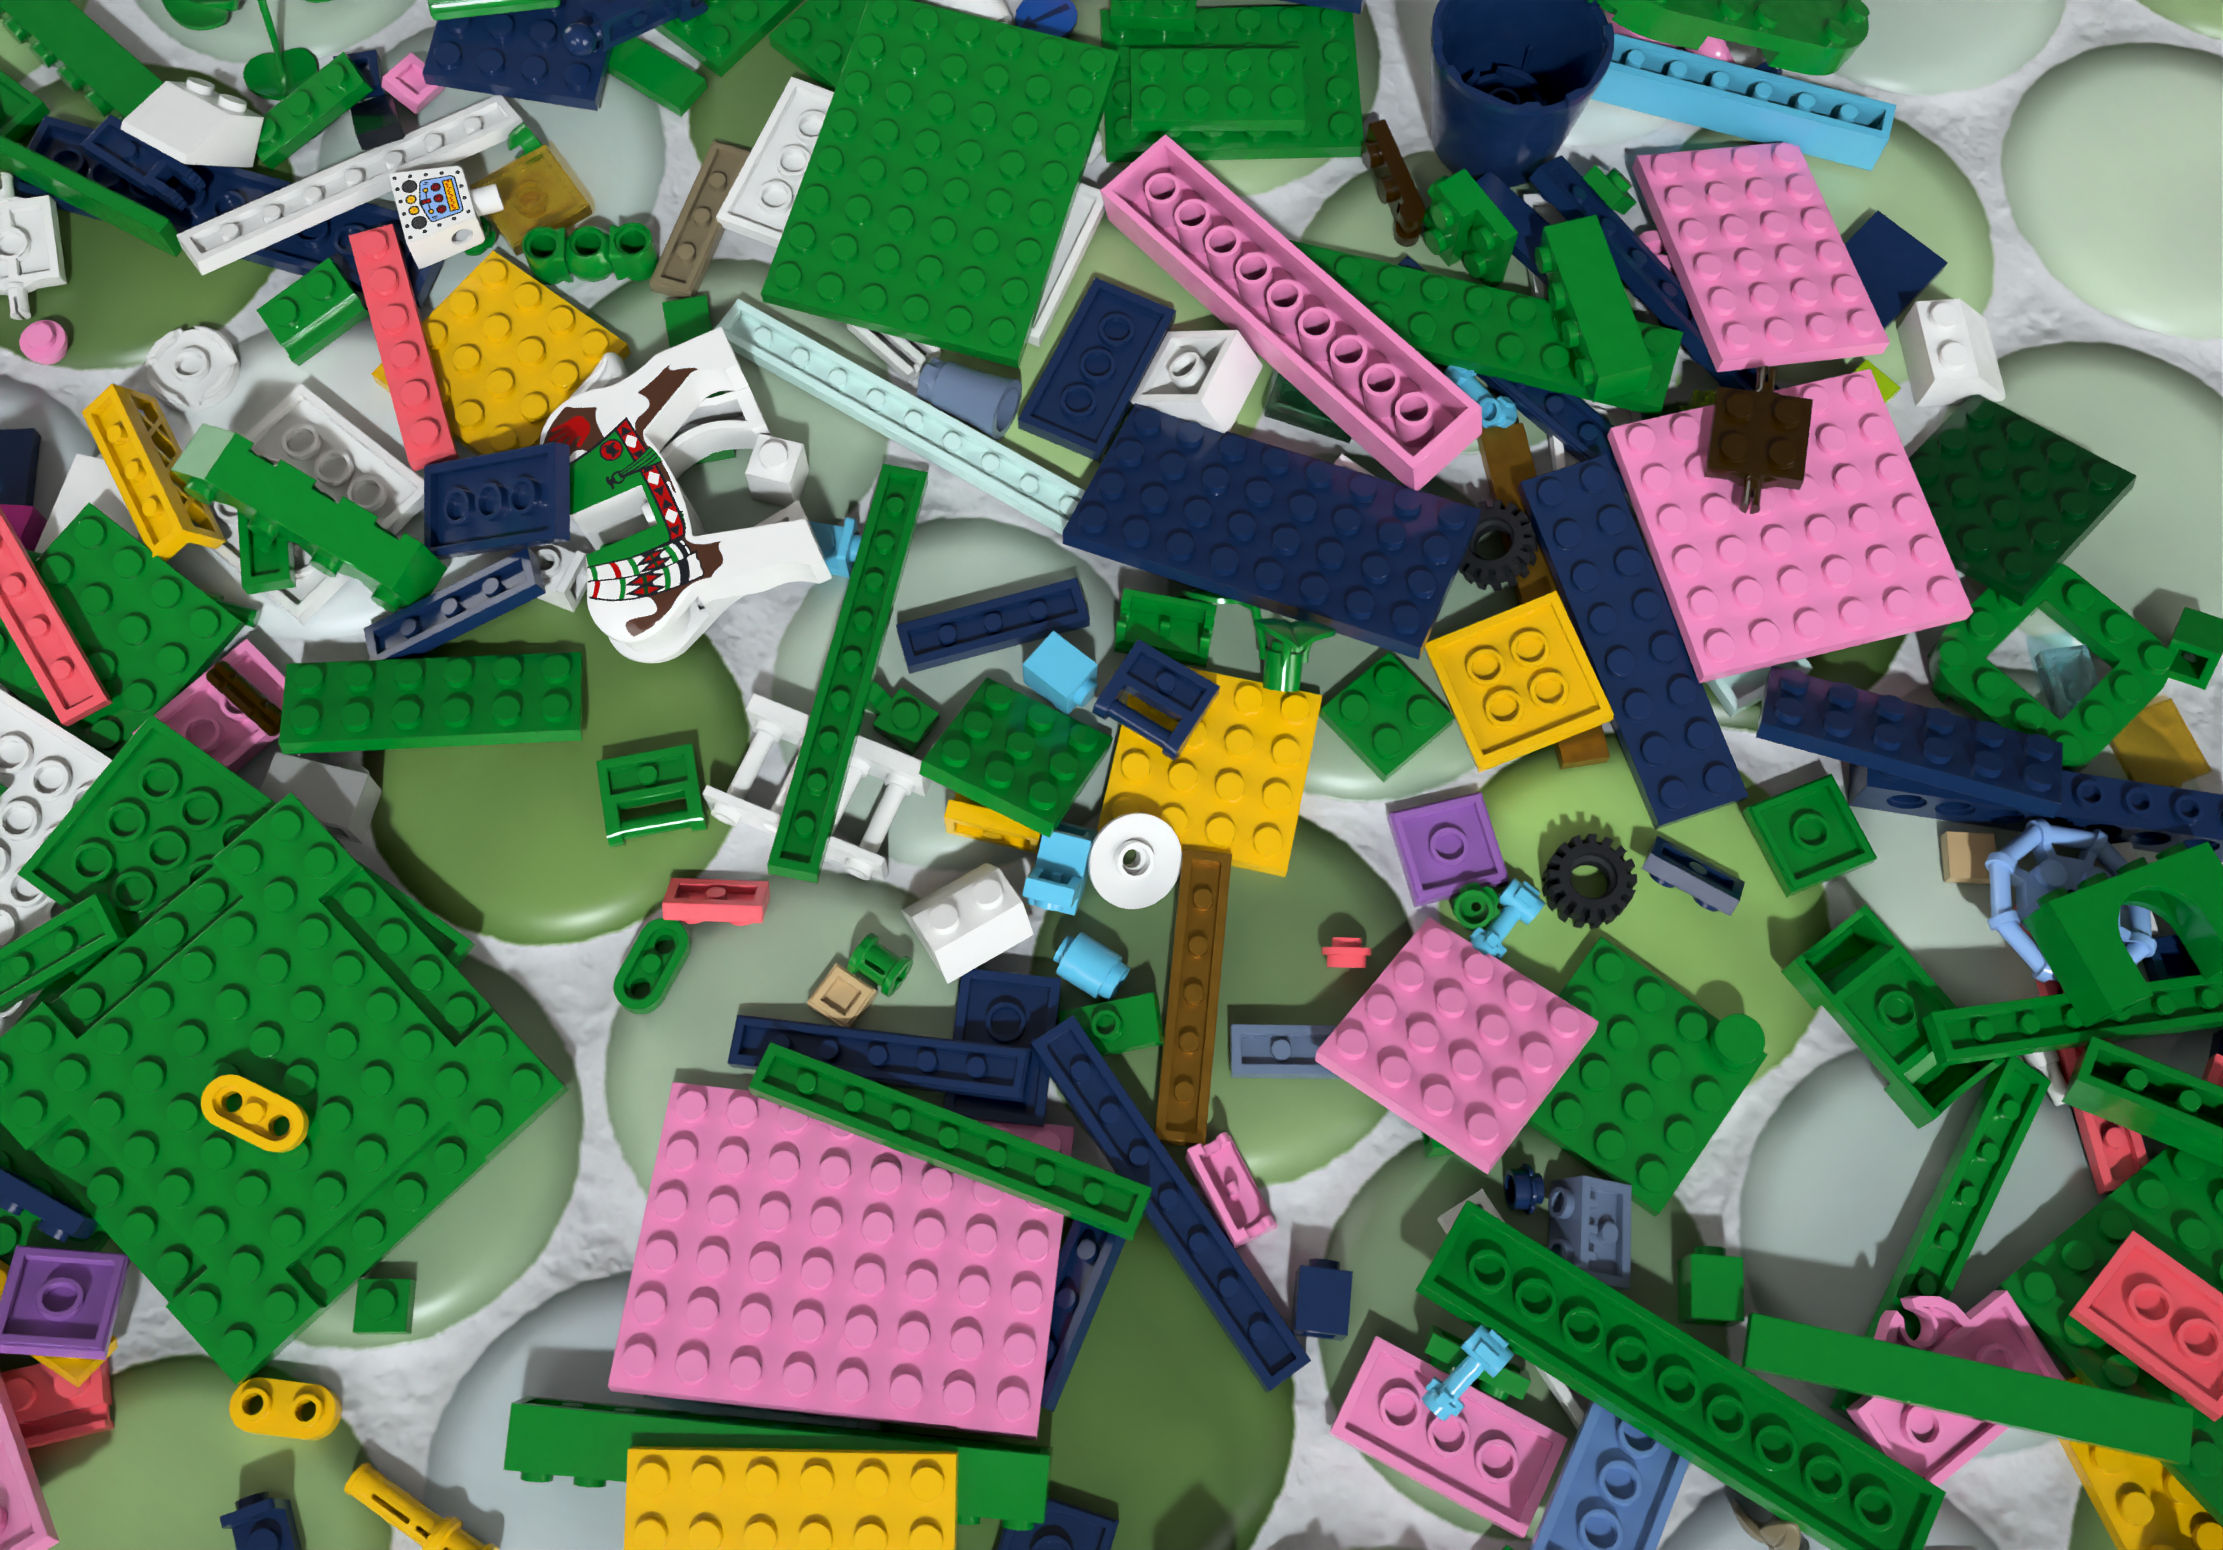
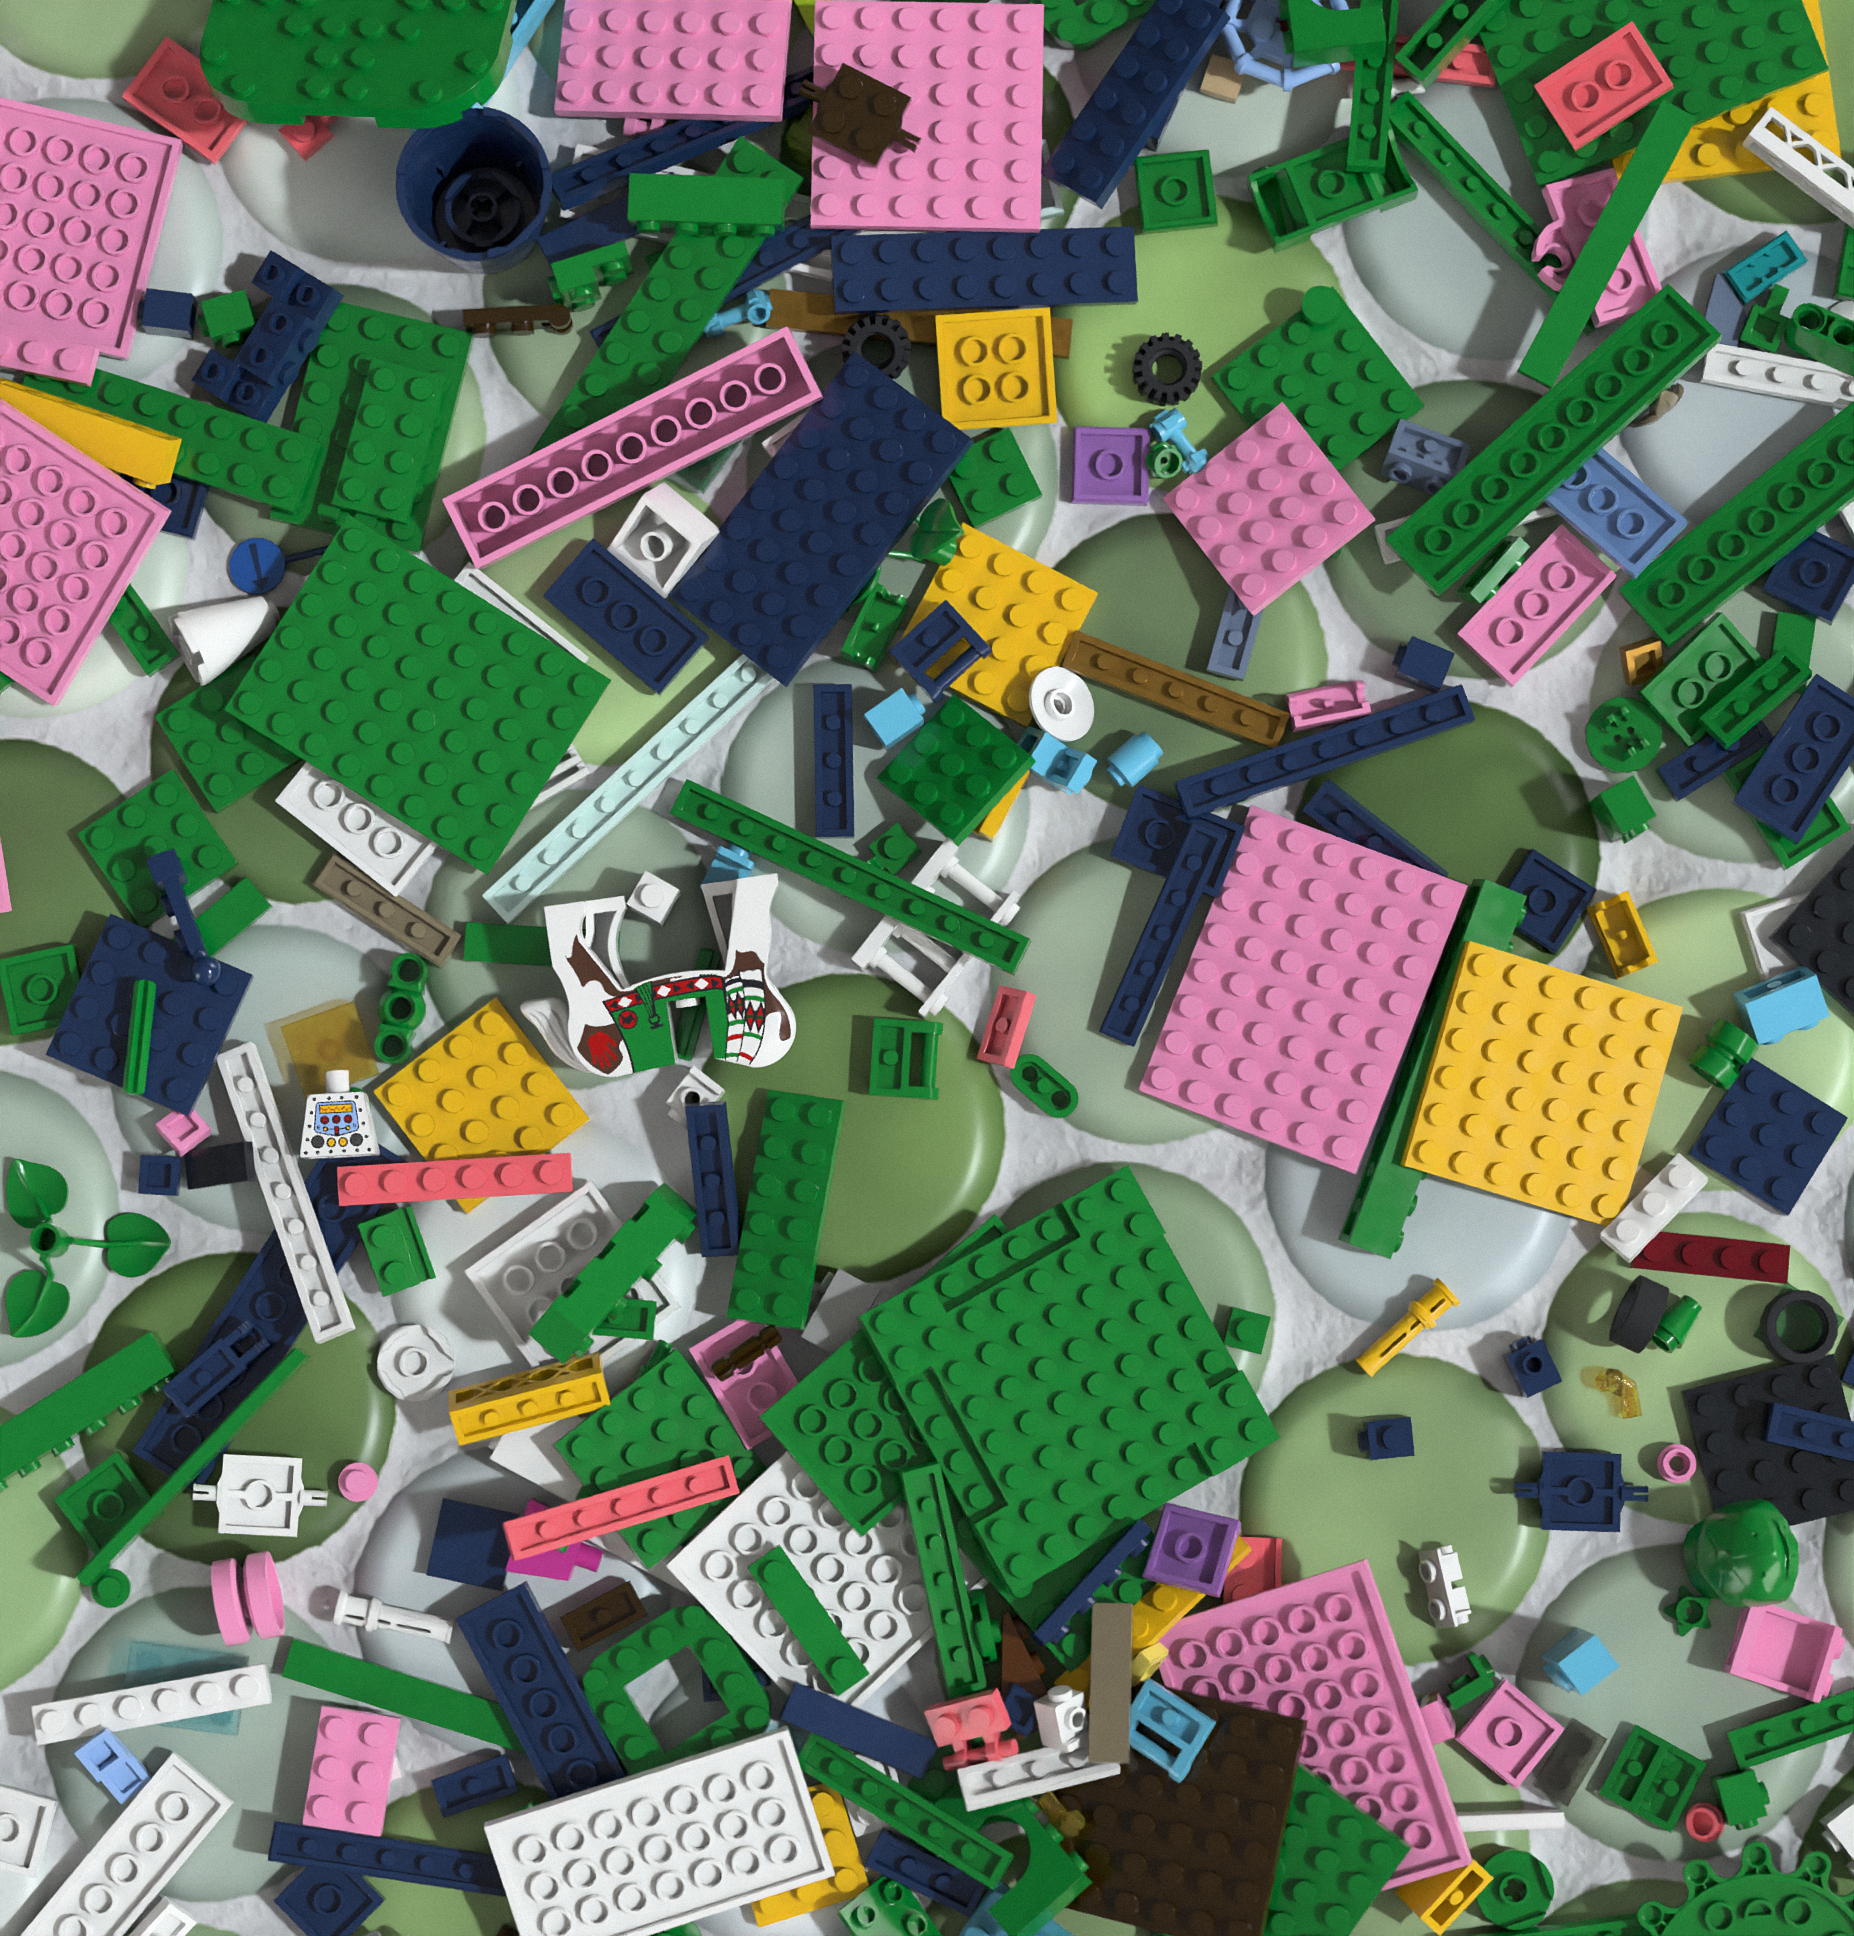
camera: 75 degrees left, 15 degrees up
(197, 124) = (193, 1317): white slope -> none
(257, 1114) = (1101, 1382): yellow plate -> none
(283, 1408) = (1299, 1411): yellow plate -> none
(310, 109) = (189, 1224): green plate -> none
(498, 501) = (638, 1123): dark blue plate -> none
(524, 137) = (270, 1044): green hinge -> none
(842, 997) = (1105, 951): tan tile -> none
(879, 964) = (1089, 916): green bush -> none
(951, 1141) = (1244, 895): green plate -> none
(969, 921) = (1073, 841): white slope -> none
(971, 395) = (625, 727): sand blue plant -> none
(1120, 1023) = (1184, 752): green plate -> none
(1346, 953) = (1174, 568): coral plate -> none
(1485, 1352) = (1494, 562): medium azure bar -> none
(1523, 1189) = (1381, 496): dark blue plate -> none
(1611, 188) = (585, 145): green plate -> none
(1705, 882) = (1184, 290): dark blue plate -> none
(1710, 1288) = (1486, 388): green brick -> none

